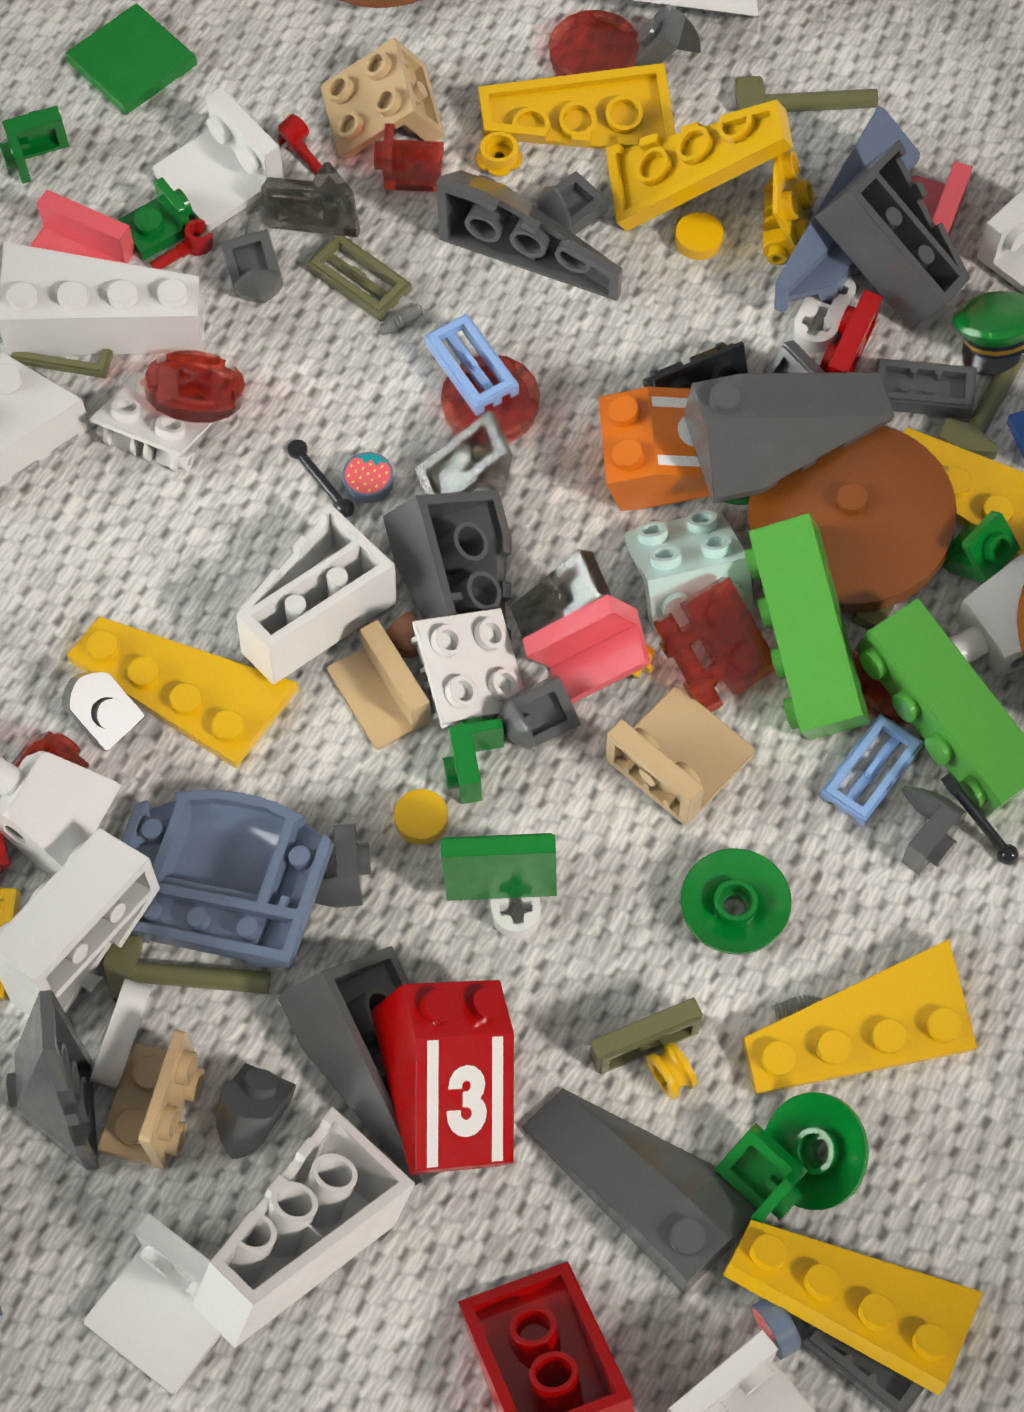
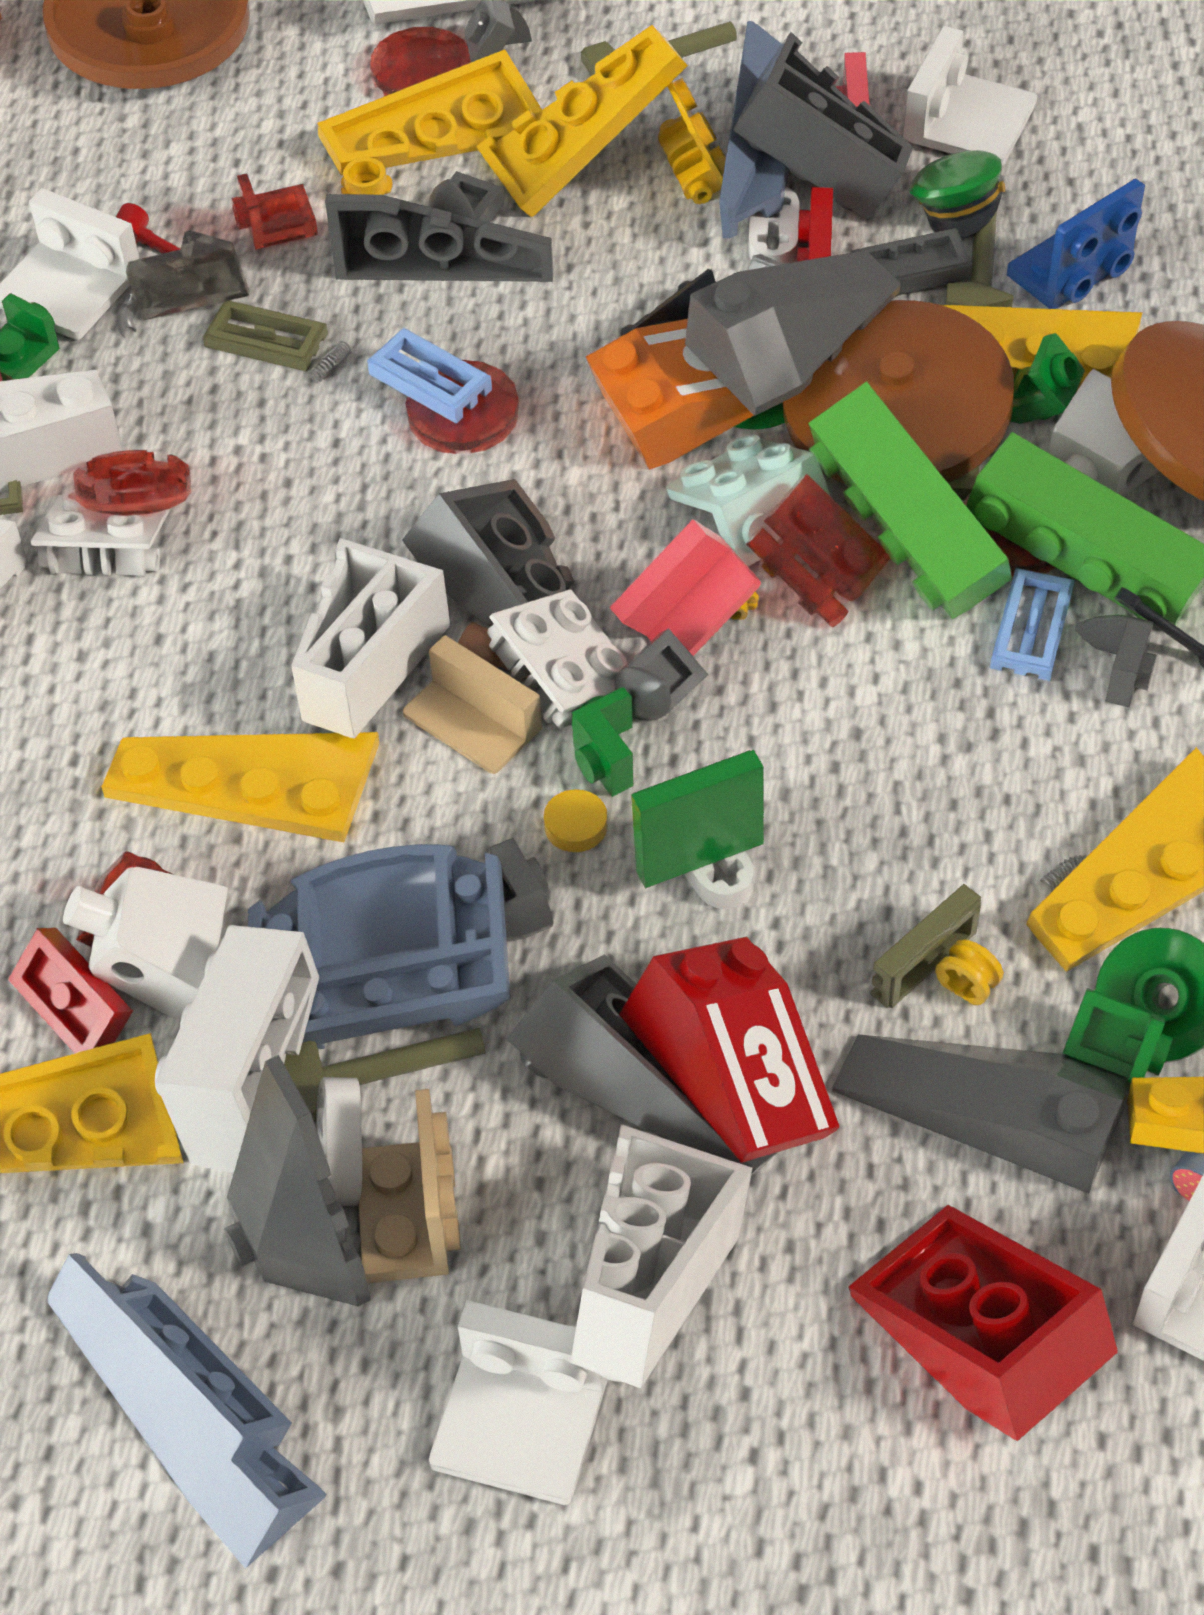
camera: 20 degrees left, 10 degrees down
(100, 707) = (164, 824): plate -> none
(191, 245) = (67, 354): red hand -> none
(251, 1109) = (523, 1173): dark grey plate -> none
(253, 266) = (145, 355): dark grey plate -> none
(298, 450) = (273, 515): black hinge -> none
(368, 477) = (363, 516): tile -> none
(378, 90) = (201, 165): tan bracket -> none
(469, 460) = (477, 453): clear smoke slope -> none
(560, 593) = (631, 548): clear smoke slope -> none
(678, 754) = (824, 672): tan bracket -> none
(699, 235) = (611, 198): yellow tile -> none
(738, 876) = (956, 765): green dish -> none

